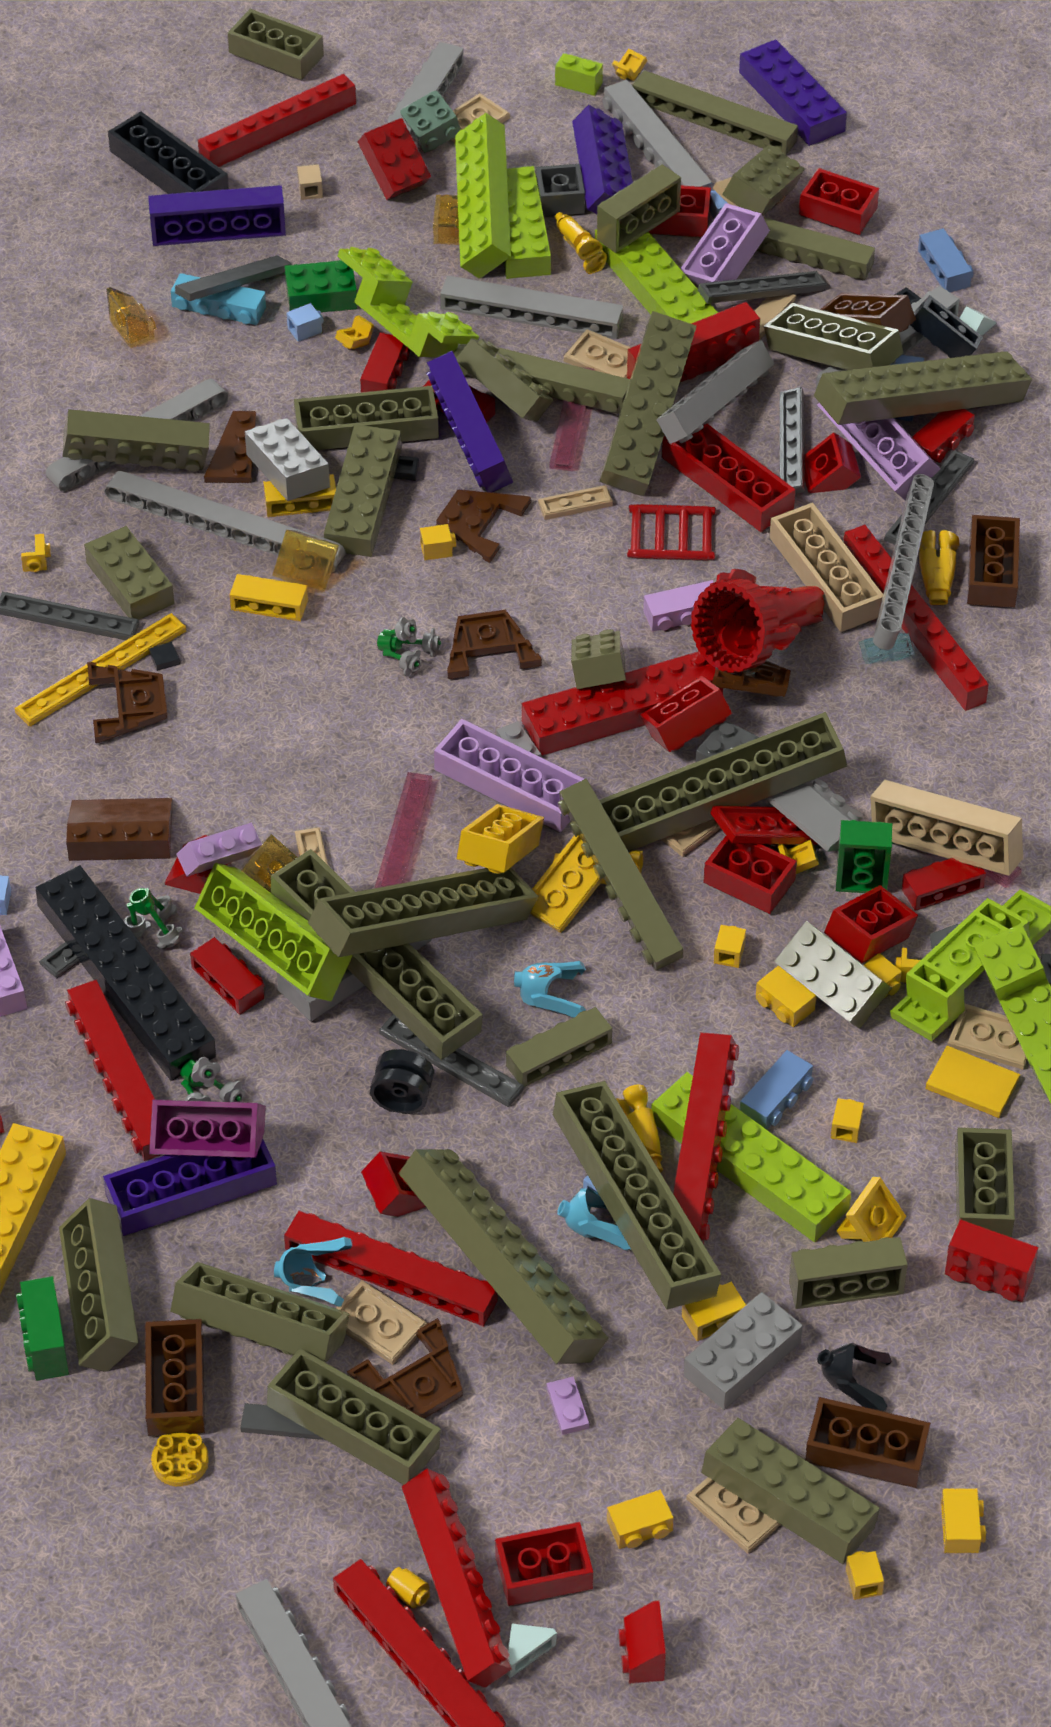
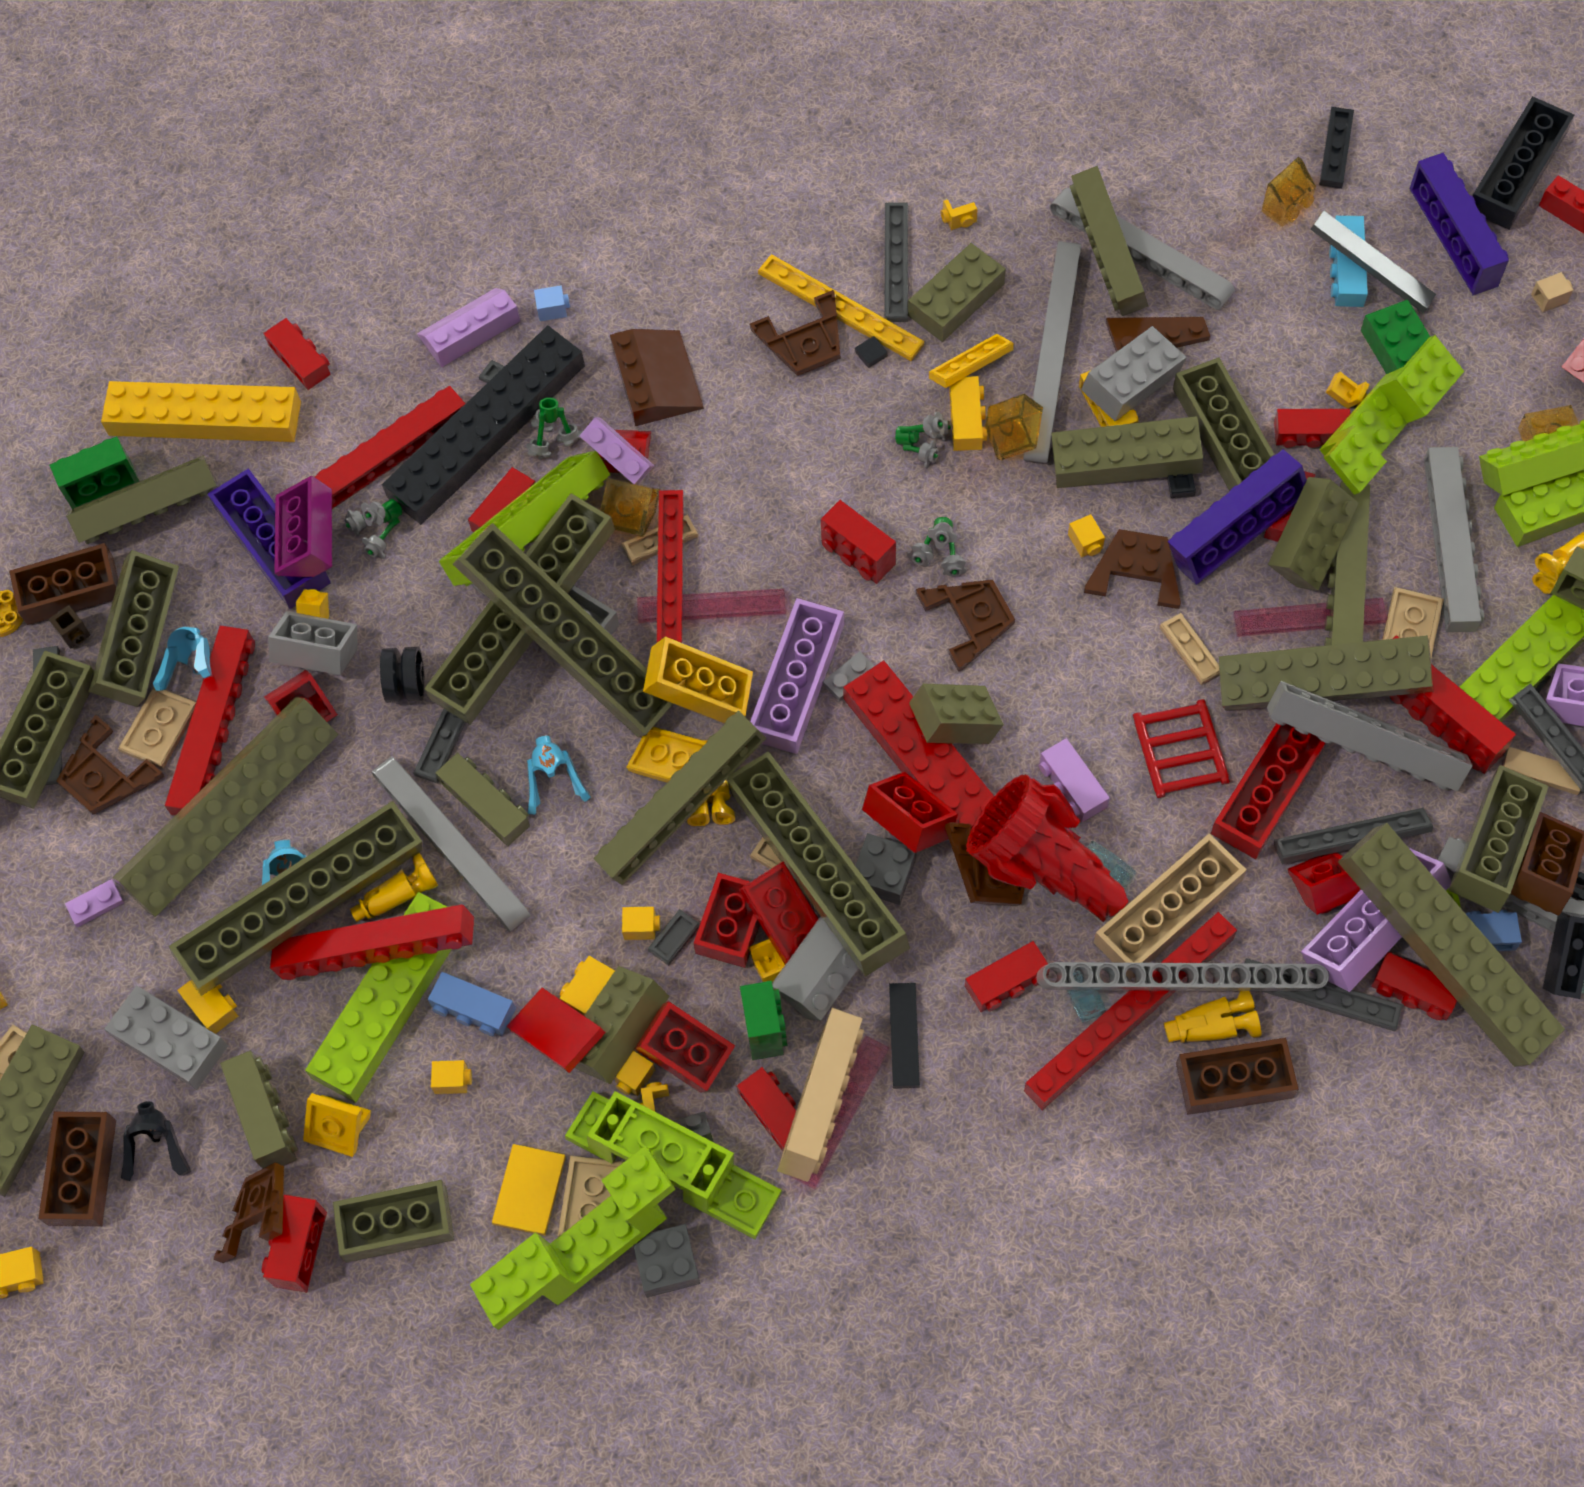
camera: 80 degrees right, 15 degrees up
(85, 276) = (1336, 147): none -> black plate
(215, 577) = (971, 360): none -> yellow tile
(232, 1379) = (69, 627): none -> dark brown brick
(277, 620) = (933, 426): none -> plant
(292, 1153) = (313, 603): none -> yellow brick
(304, 322) = (1347, 342): light blue brick -> none
(337, 1153) = (313, 643): none -> light grey brick
(367, 850) = (670, 565): none -> red plate
(385, 698) = (858, 542): none -> red brick
(618, 1072) = (451, 844): none -> light grey beam
(757, 932) = (673, 937): none -> dark grey tile
(828, 1015) = (556, 1030): none -> red tile
(859, 692) = (1005, 977): none -> red brick
(873, 774) = (904, 1035): none -> black tile
(938, 1285) = (257, 1201): none -> reddish brown wing

